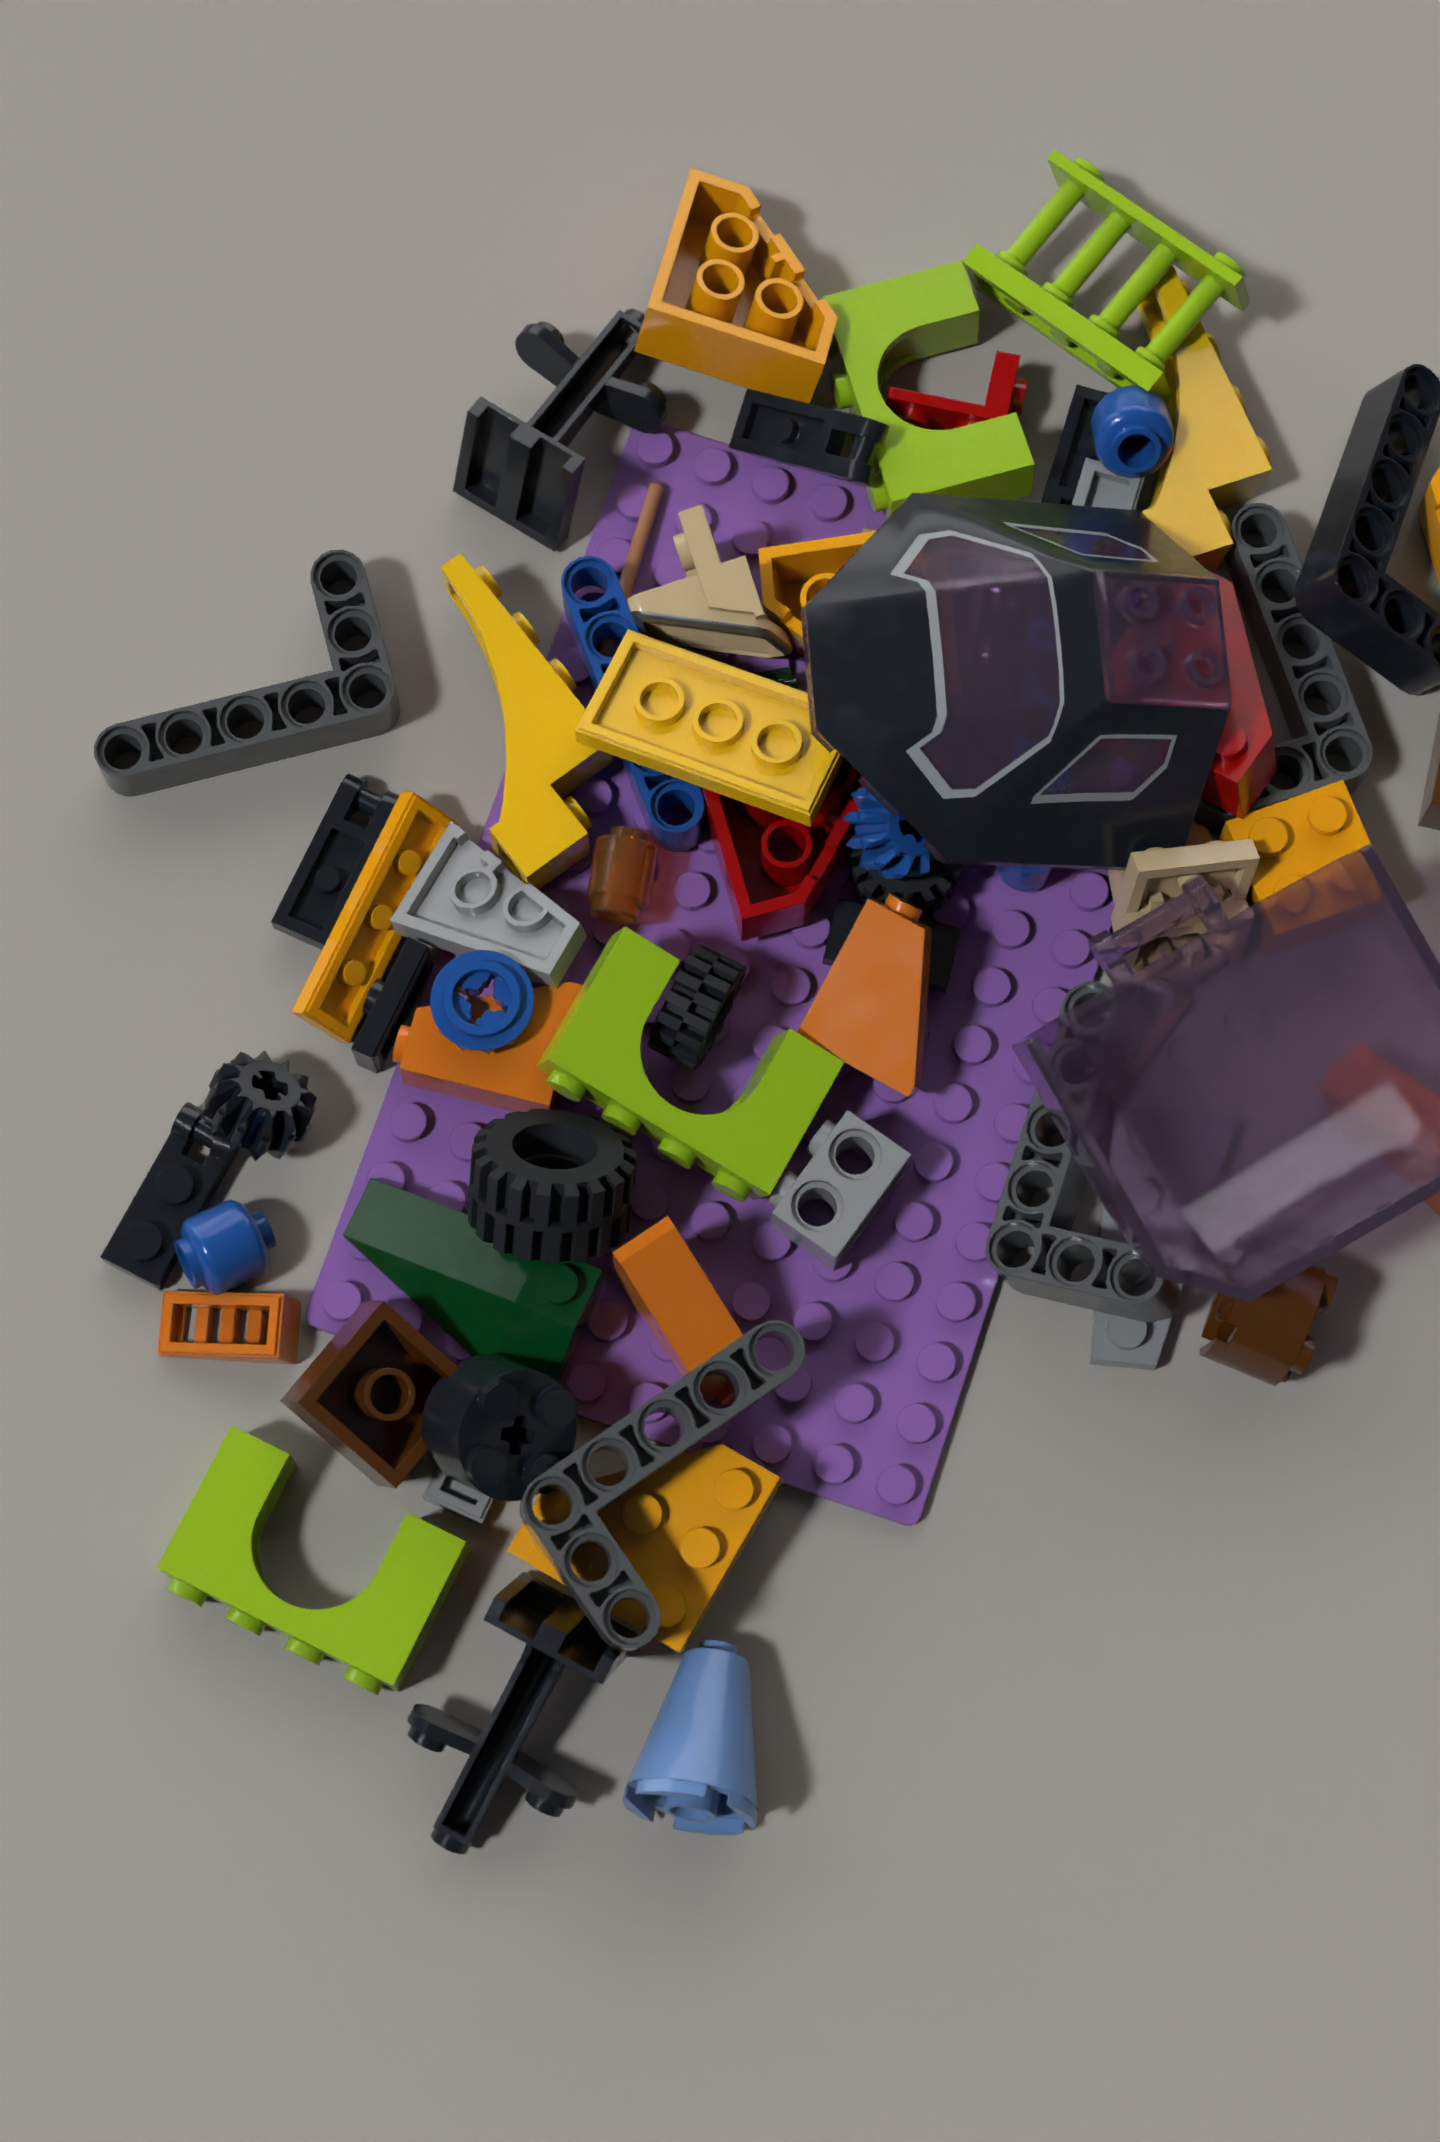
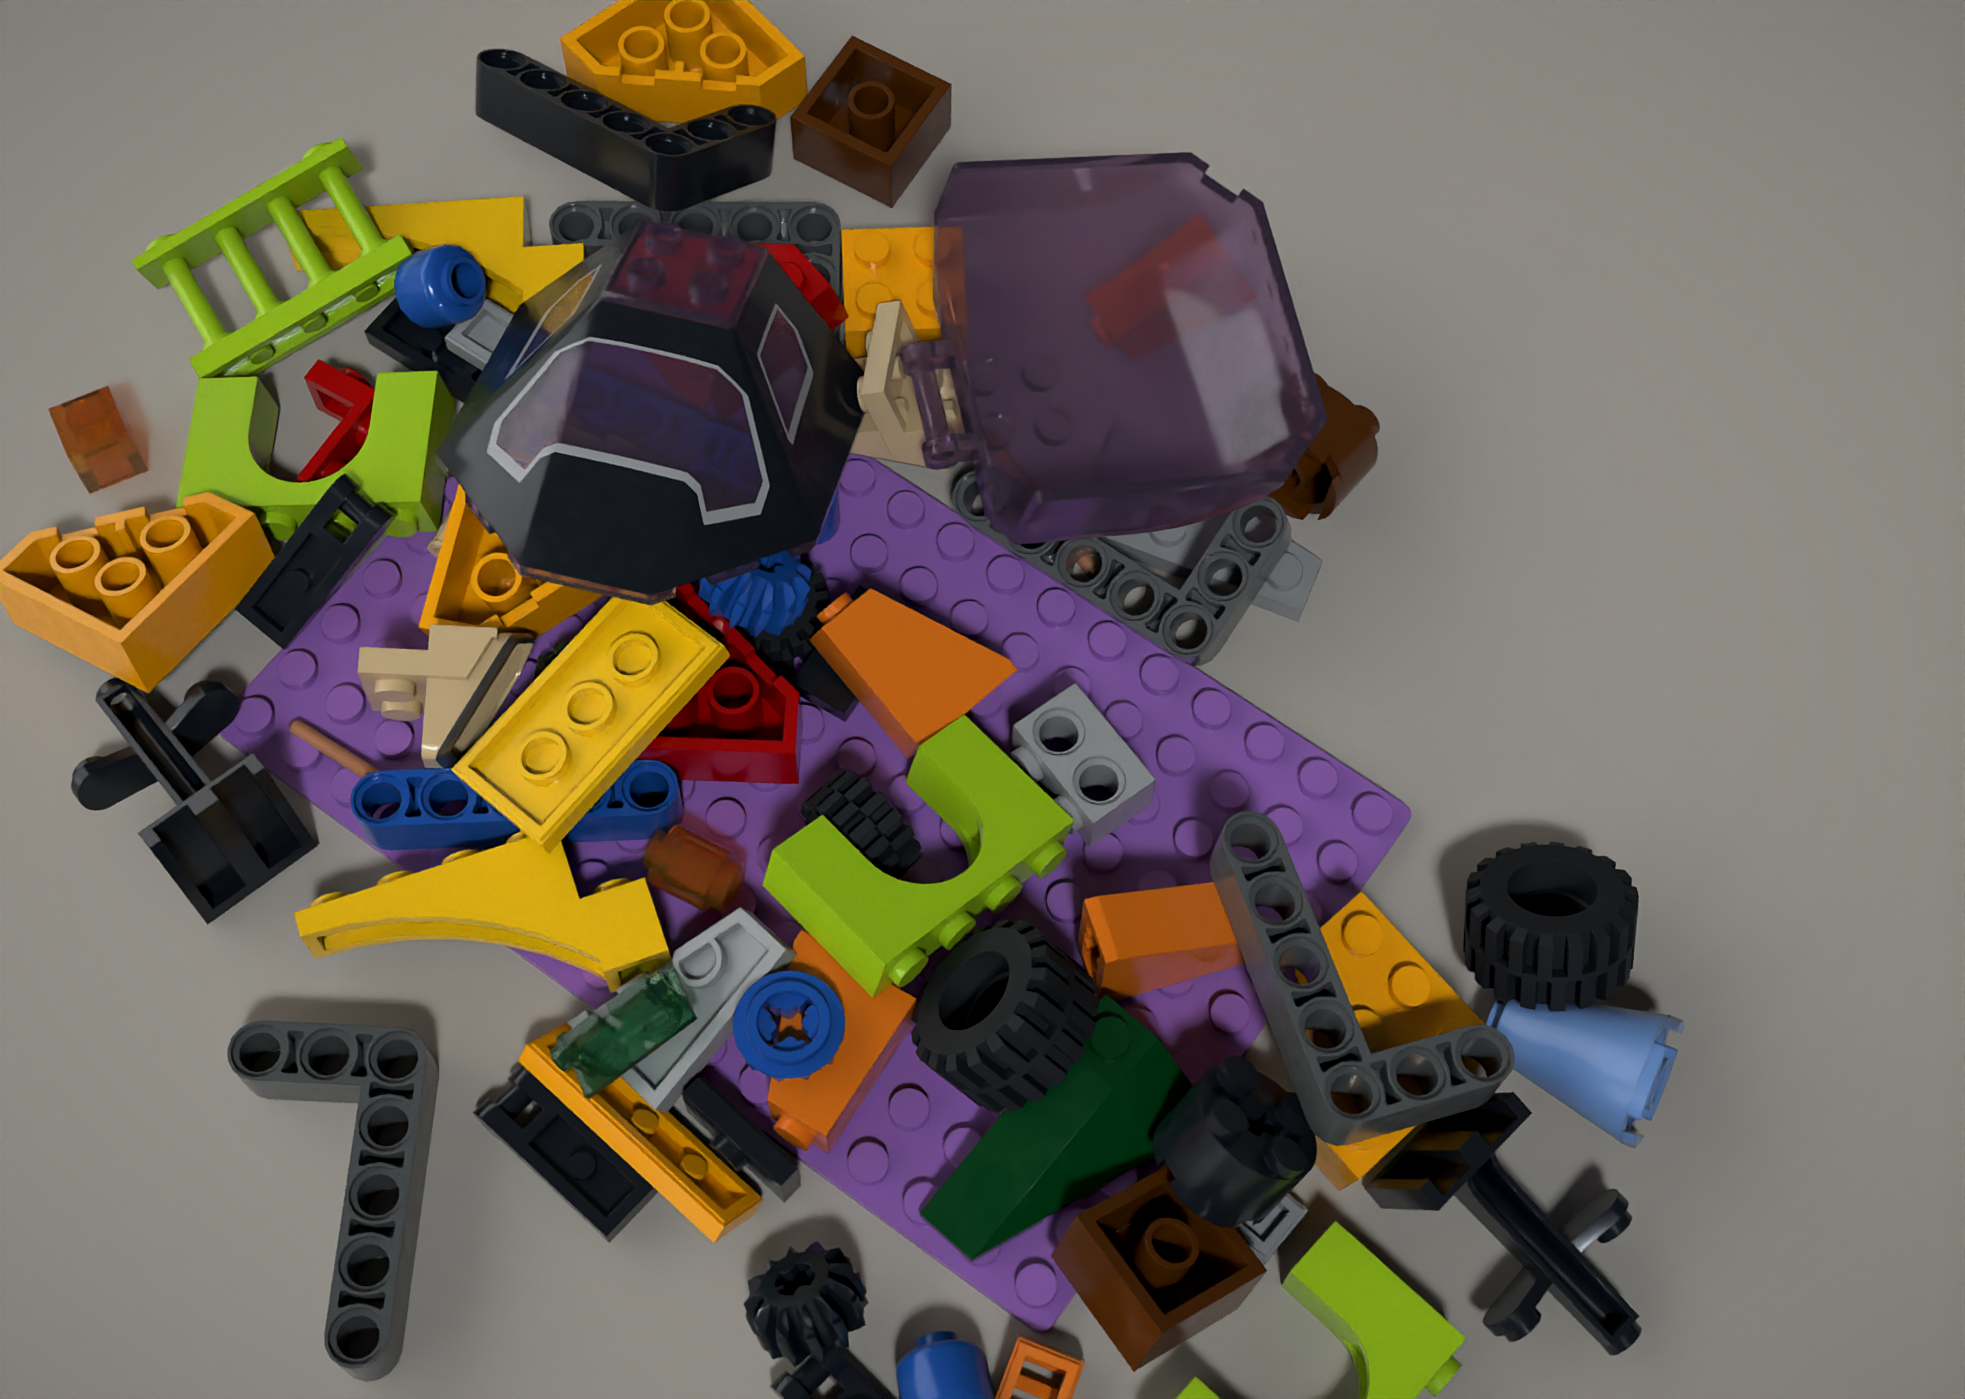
camera: 75 degrees left, 10 degrees down
(441, 867) = (636, 1026): none -> clear green hinge
(849, 1646) = (1550, 925): none -> black tyre
(875, 202) = (98, 439): none -> clear orange brick

